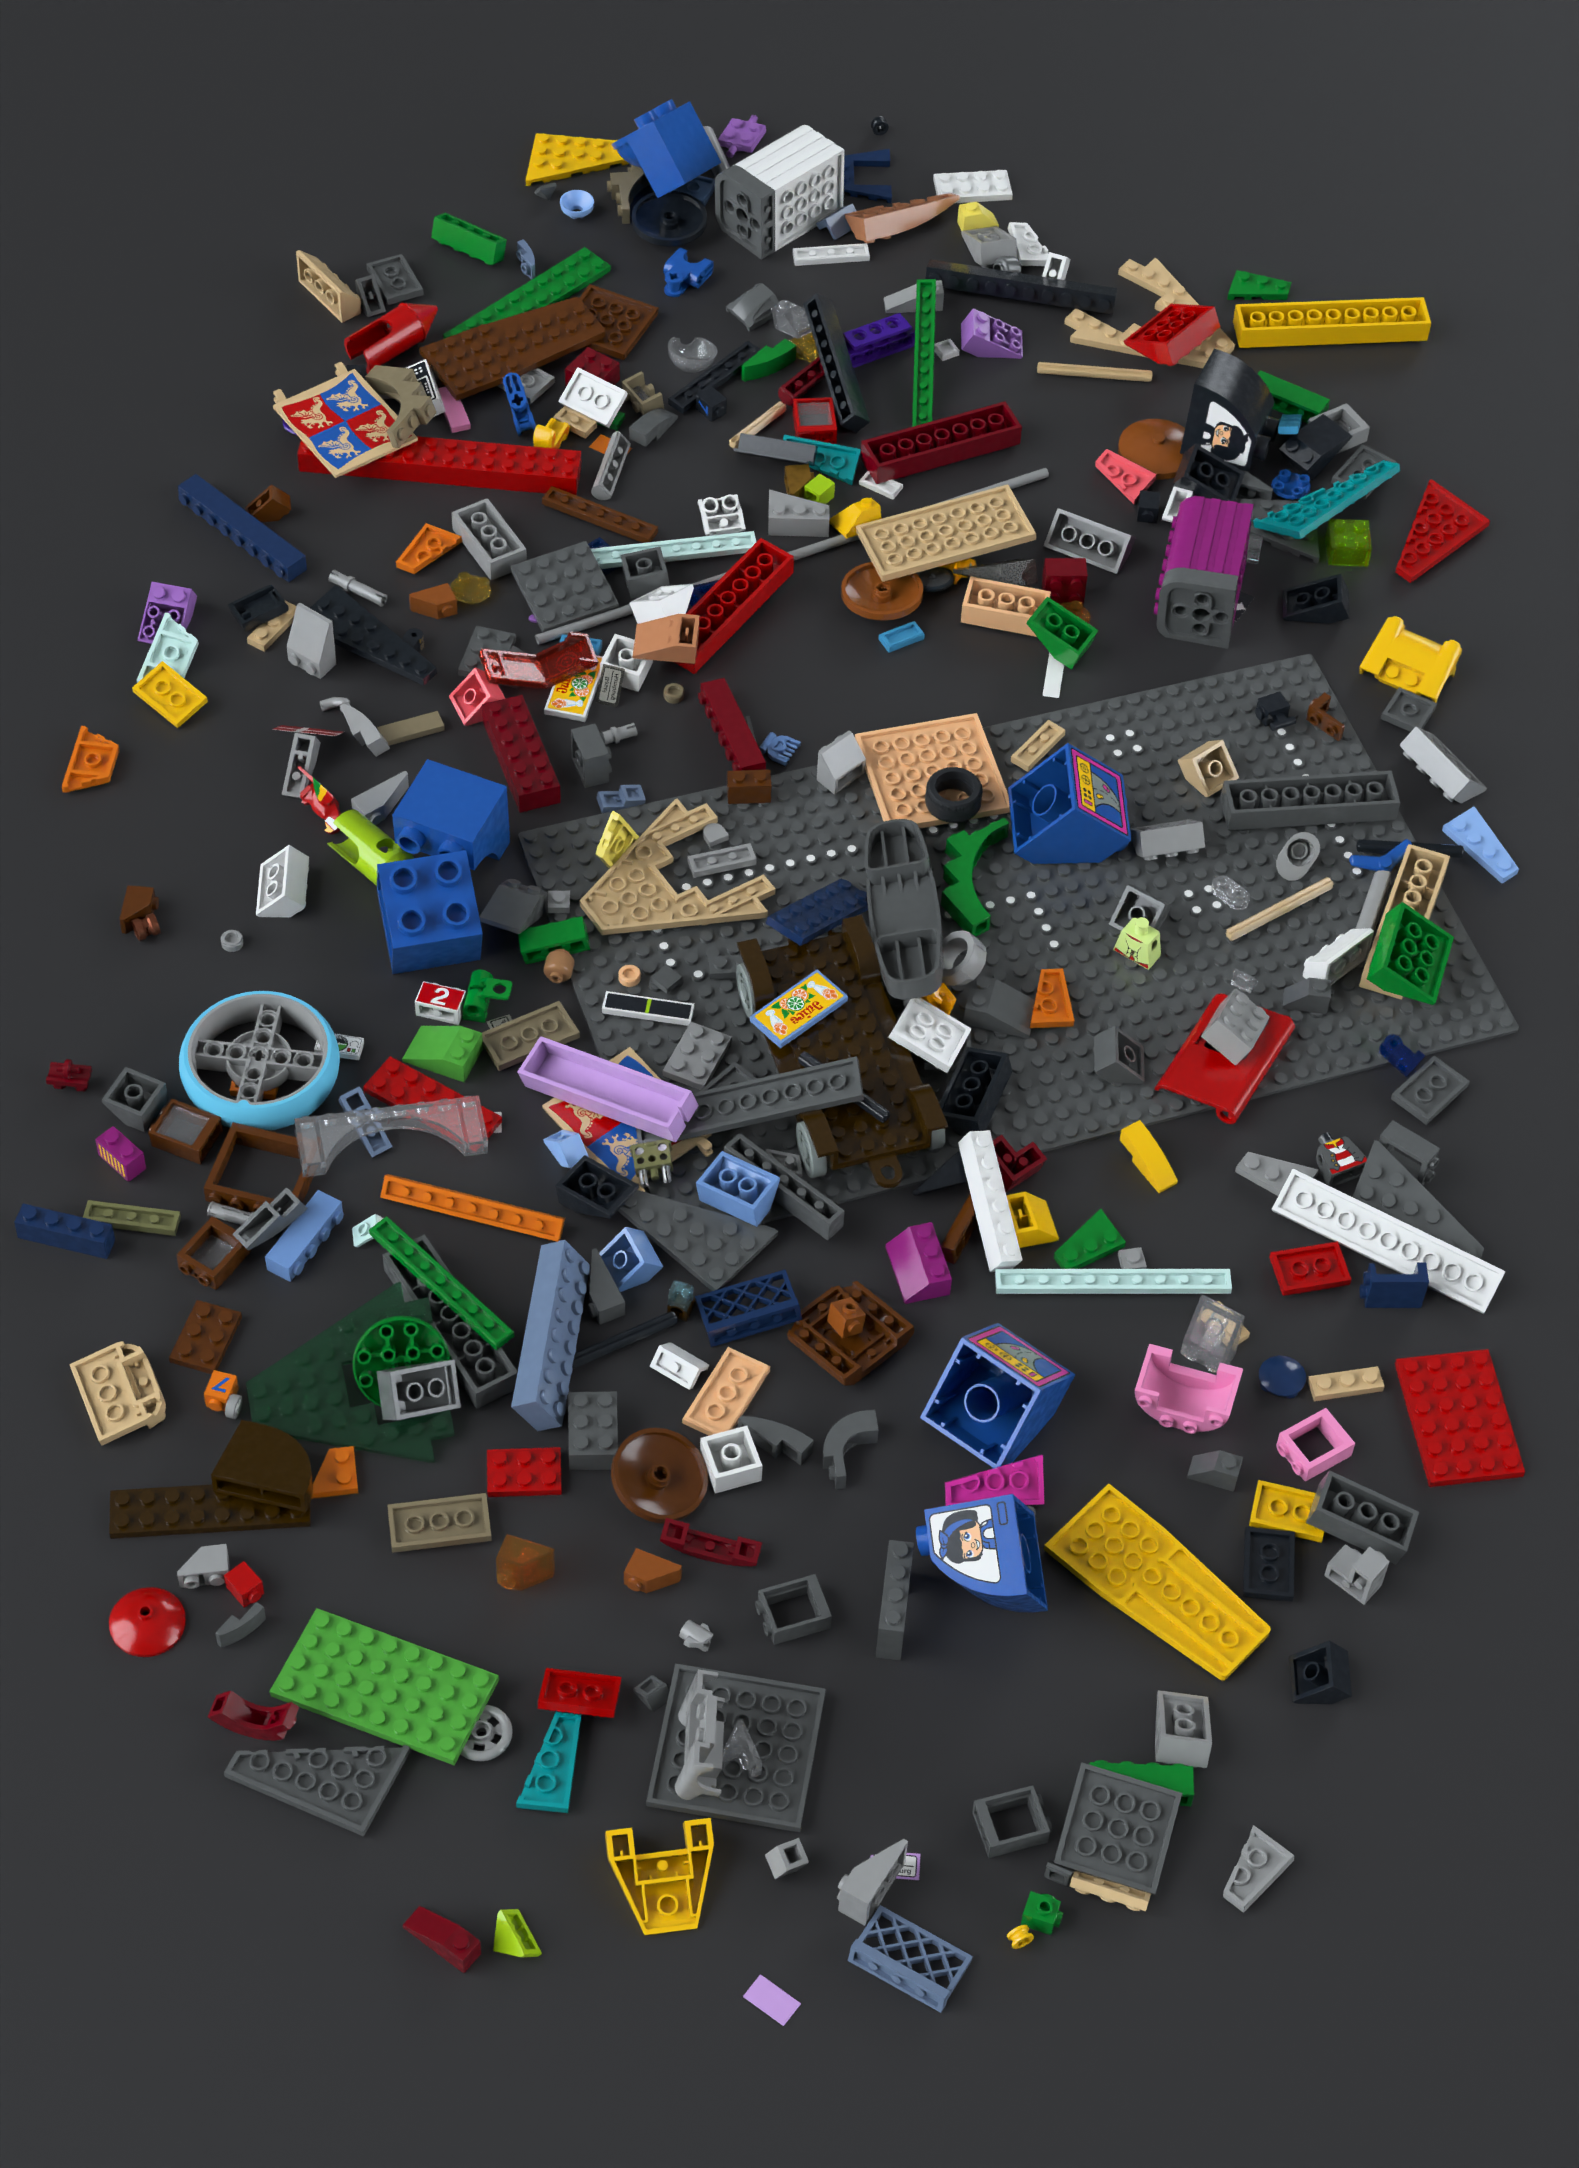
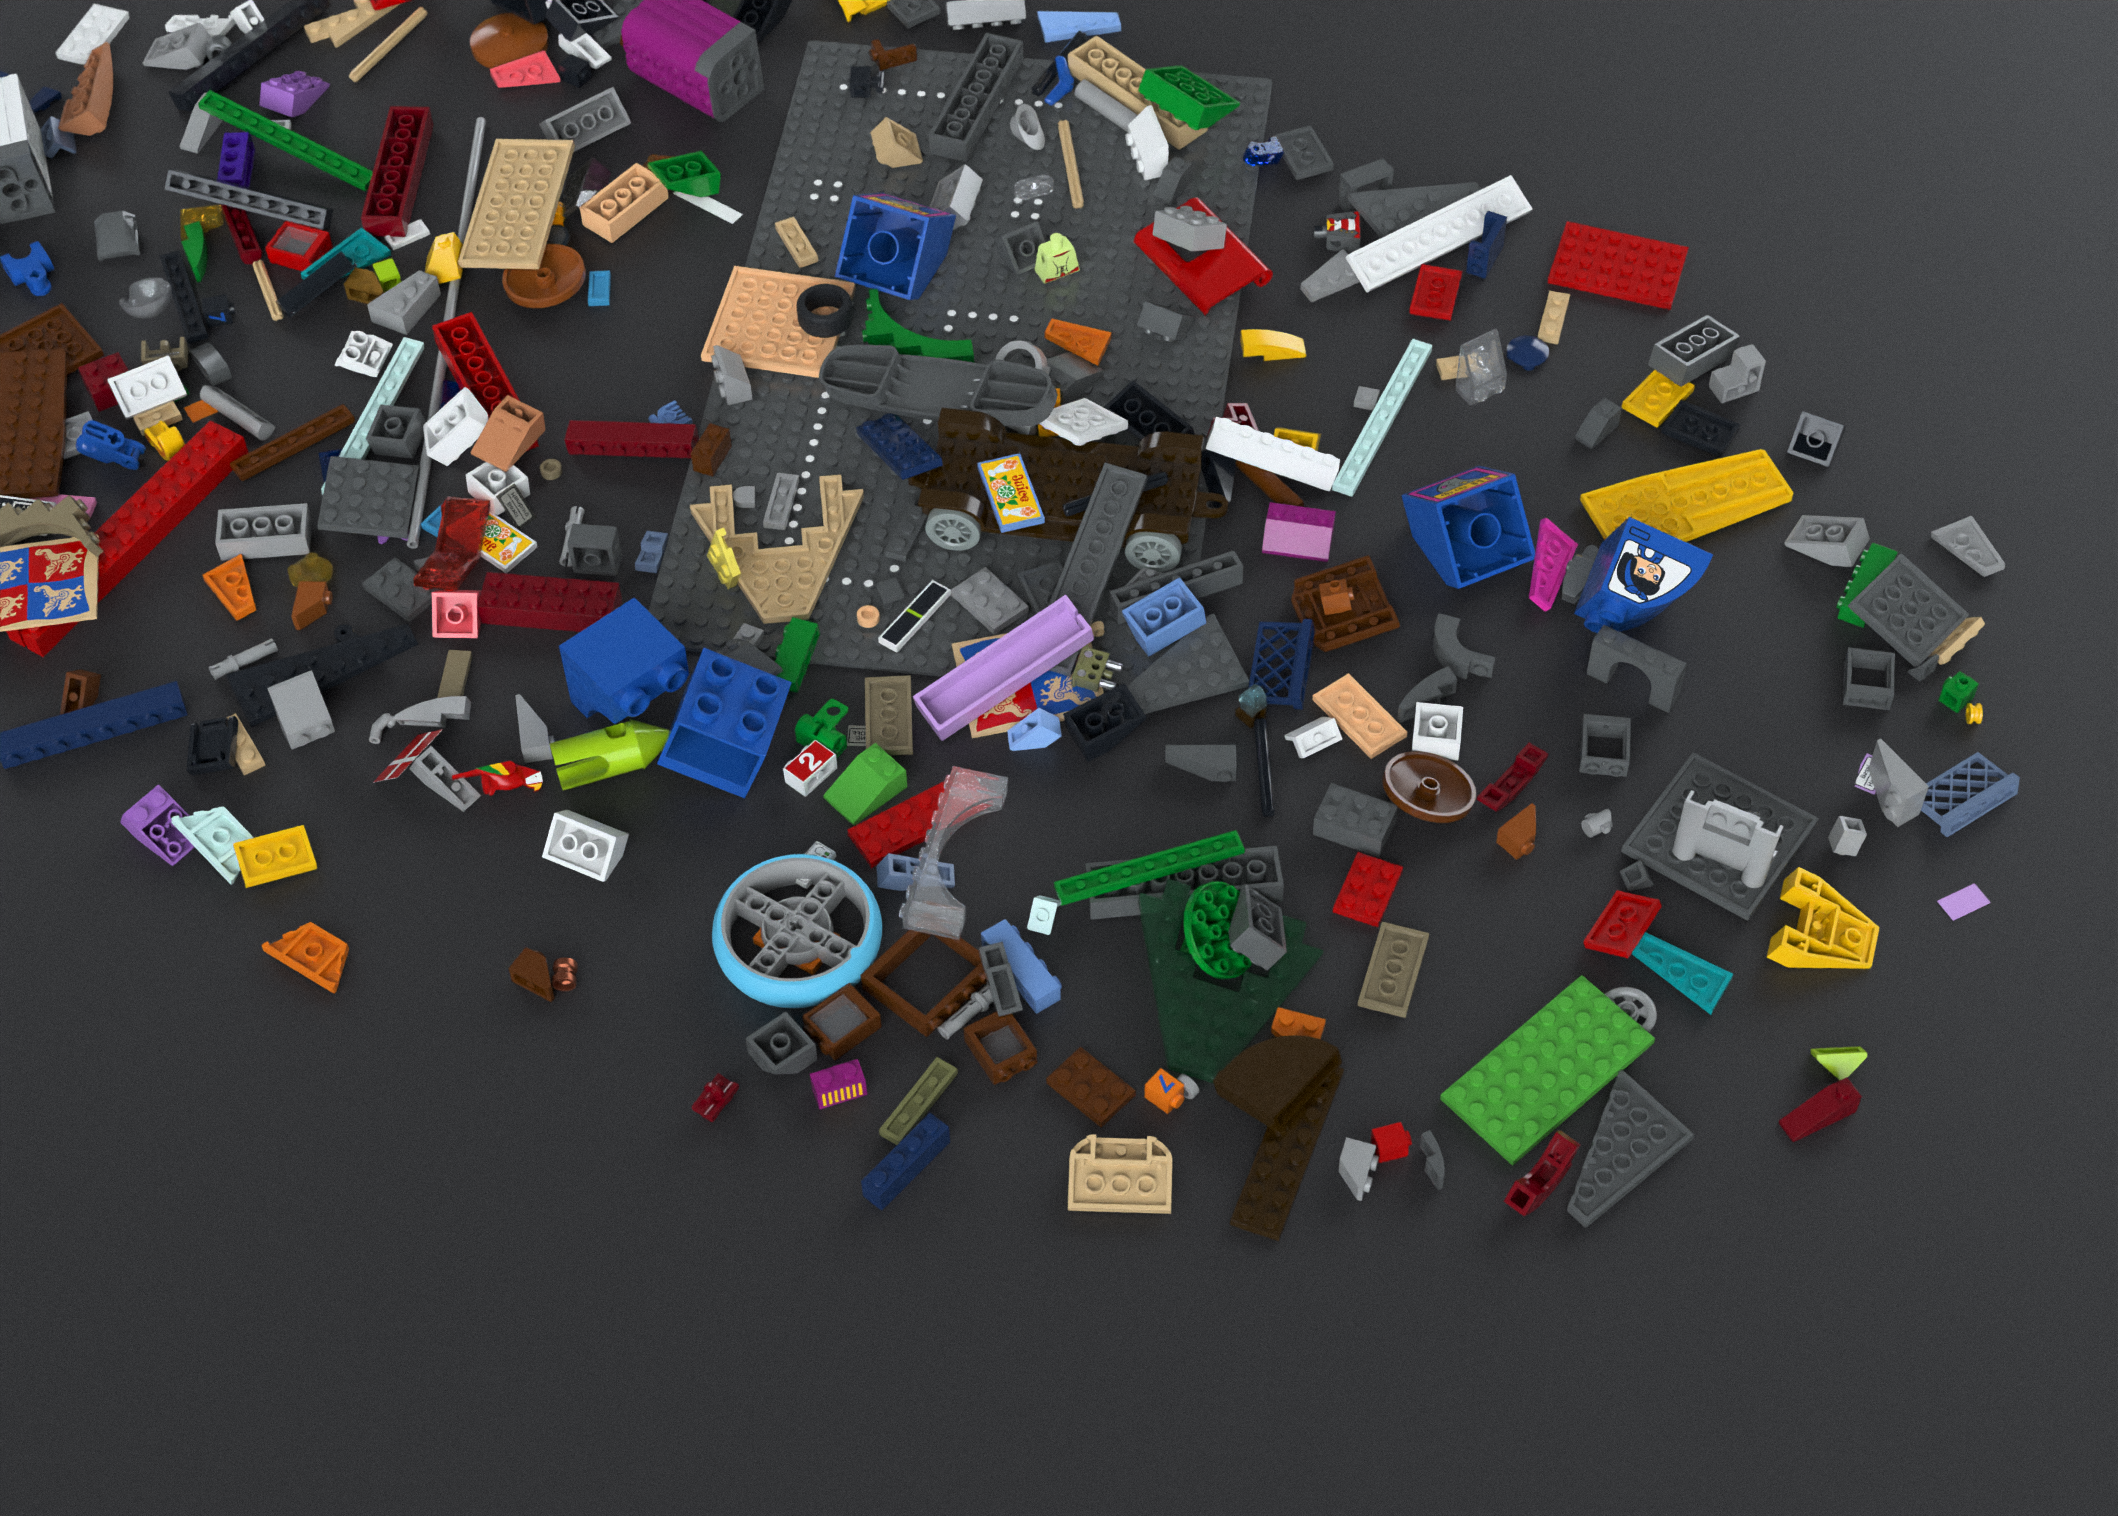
camera: 60 degrees left, 0 degrees up
(150, 1633) = (1388, 1251): red dish -> none
(232, 940) = (623, 911): light grey tile -> none
(472, 1207) = (1060, 826): orange plate -> none
(523, 1563) = (1473, 917): clear orange slope -> none
(551, 1336) = (1251, 811): sand blue brick -> none
(559, 966) = (825, 663): medium nougat head -> none
(630, 1259) = (1185, 726): medium blue slope -> none
(790, 319) = (162, 212): clear slope -> none
(831, 254) = (93, 161): white tile -> none
(975, 216) = (136, 47): light yellow slope -> none
(1065, 579) = (625, 149): dark red brick -> none
(1090, 1243) = (1335, 417): green wing -> none
(1183, 1395) = (1530, 405): bright pink cylinder -> none
(1243, 981) = (1132, 214): clear slope -> none
(1332, 1431) = (1605, 340): bright pink window -> none

